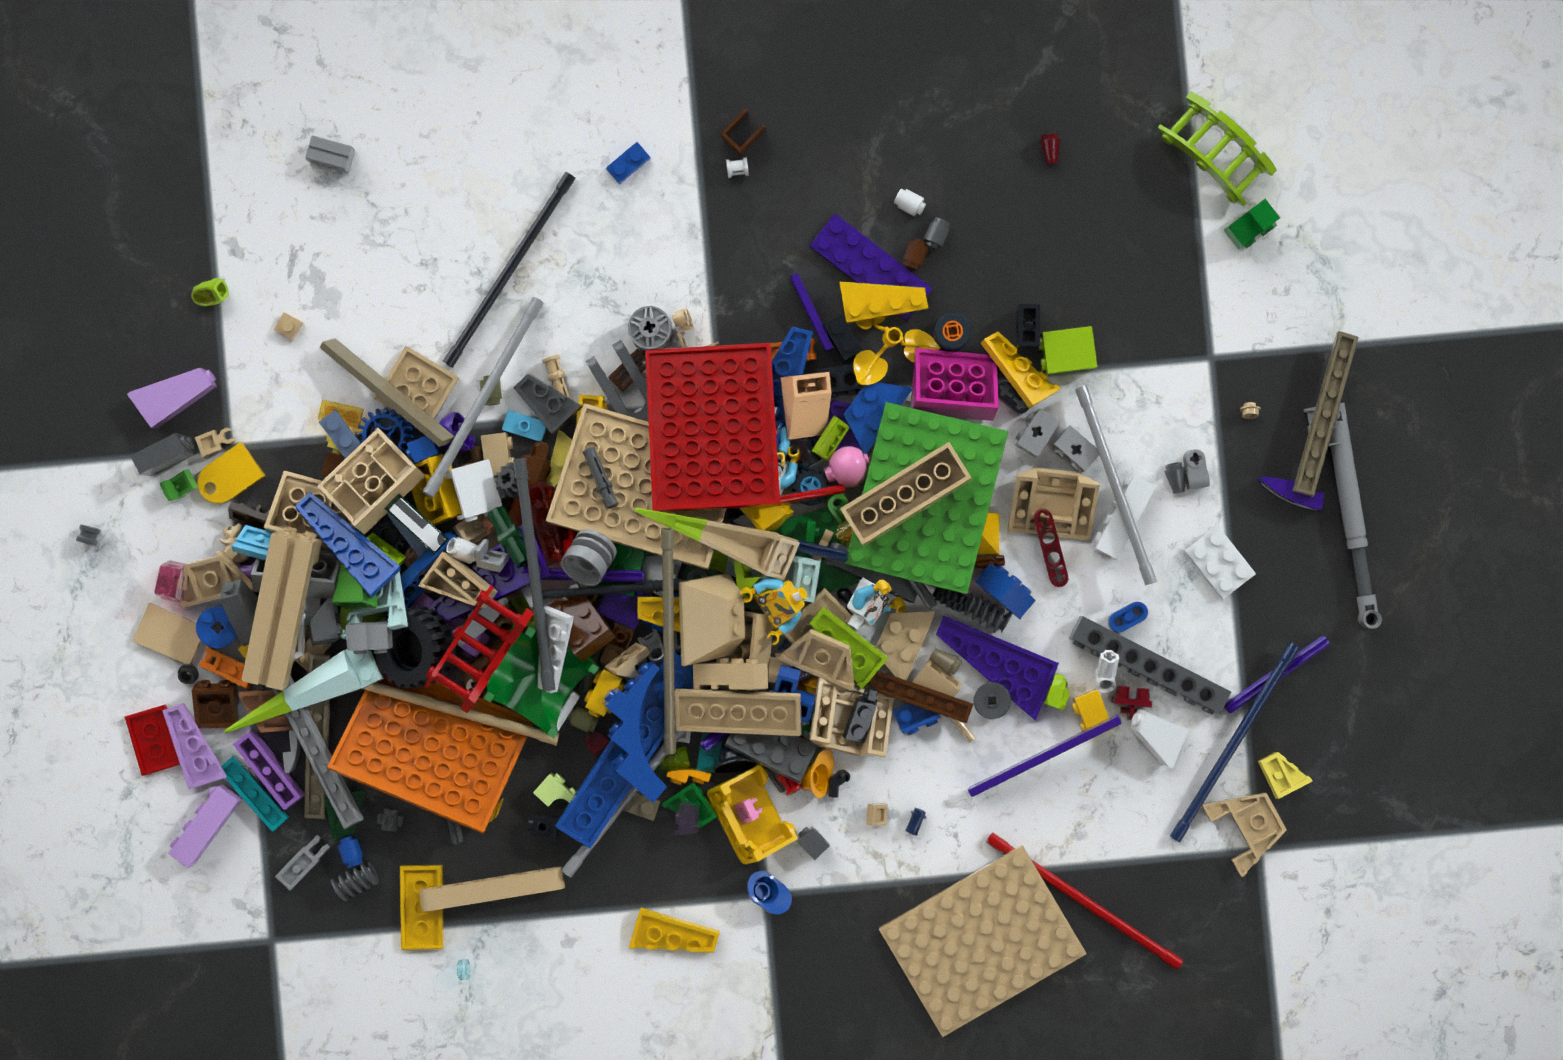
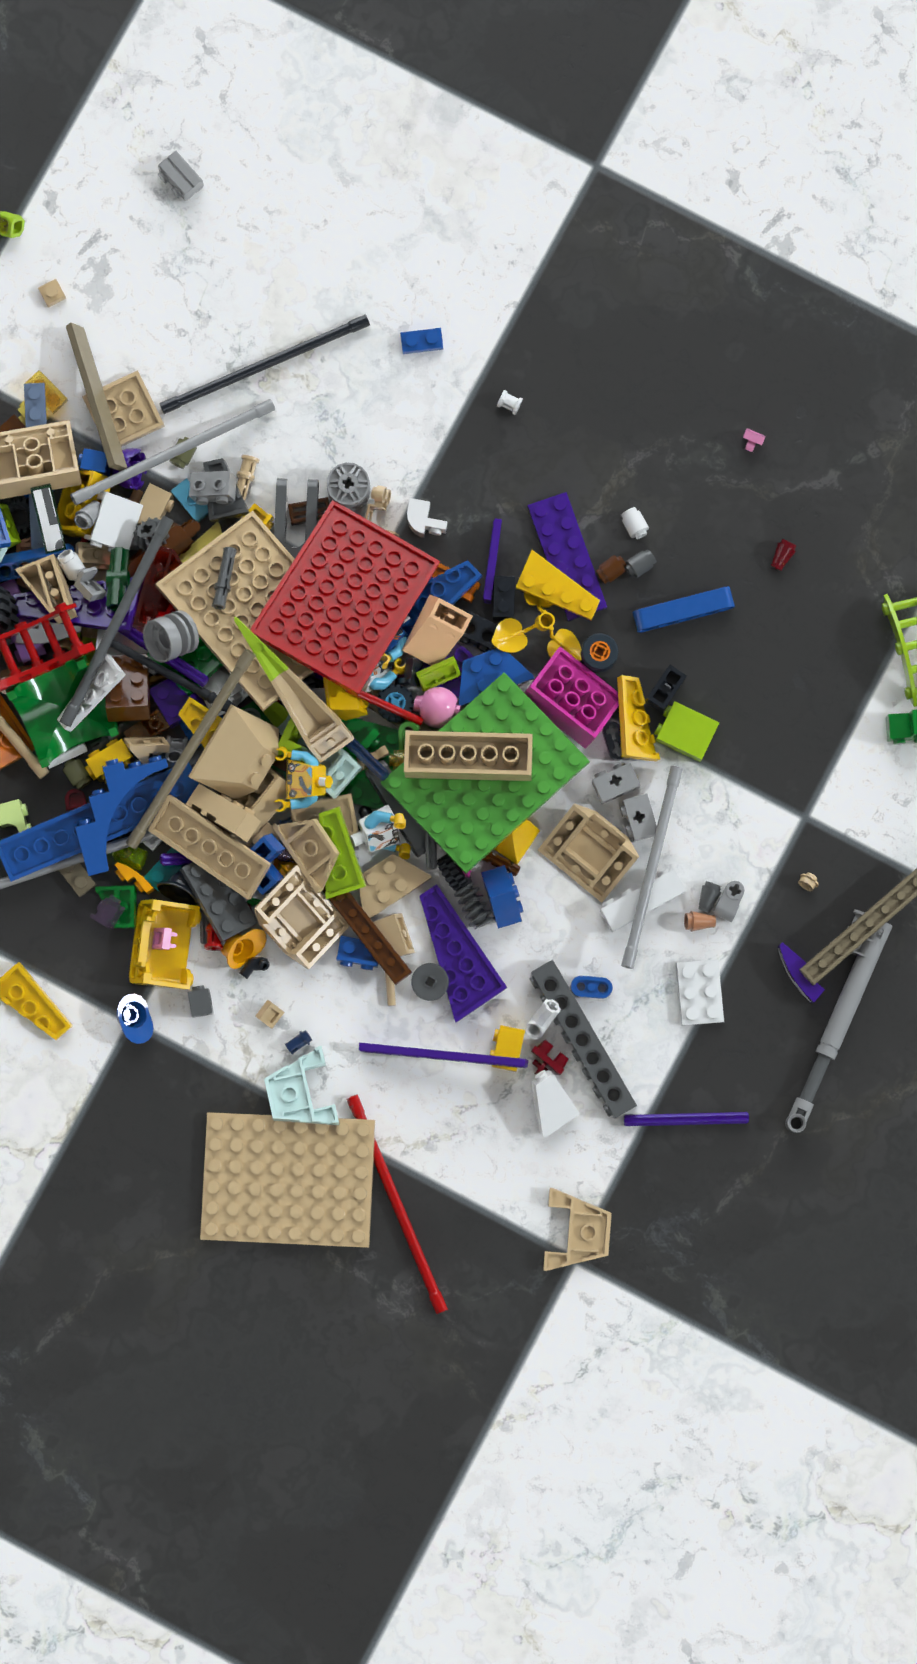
camera: 30 degrees right, 5 degrees down
(374, 420) = (78, 431): blue gear -> none
(448, 500) = (87, 515): none -> light grey cone
(536, 405) = (212, 487): none -> light grey brick
(726, 318) = (418, 519): none -> white brick
(732, 126) = (527, 366): reddish brown piece -> none
(861, 715) = (311, 920): black hinge -> none
(938, 869) = (290, 1093): none -> light aqua wing
(946, 661) = (414, 926): dark tan cone -> none
(962, 65) = (753, 438): none -> bright pink tile
(998, 249) = (683, 609): none -> blue beam
(1048, 548) = (565, 886): dark red beam -> none
(1057, 692) = (489, 1011): lime rock -> none
(1178, 505) = (697, 921): none -> nougat cone
(1184, 824) = (524, 1193): dark blue piece -> none
(1282, 775) = (635, 1207): light yellow wing -> none

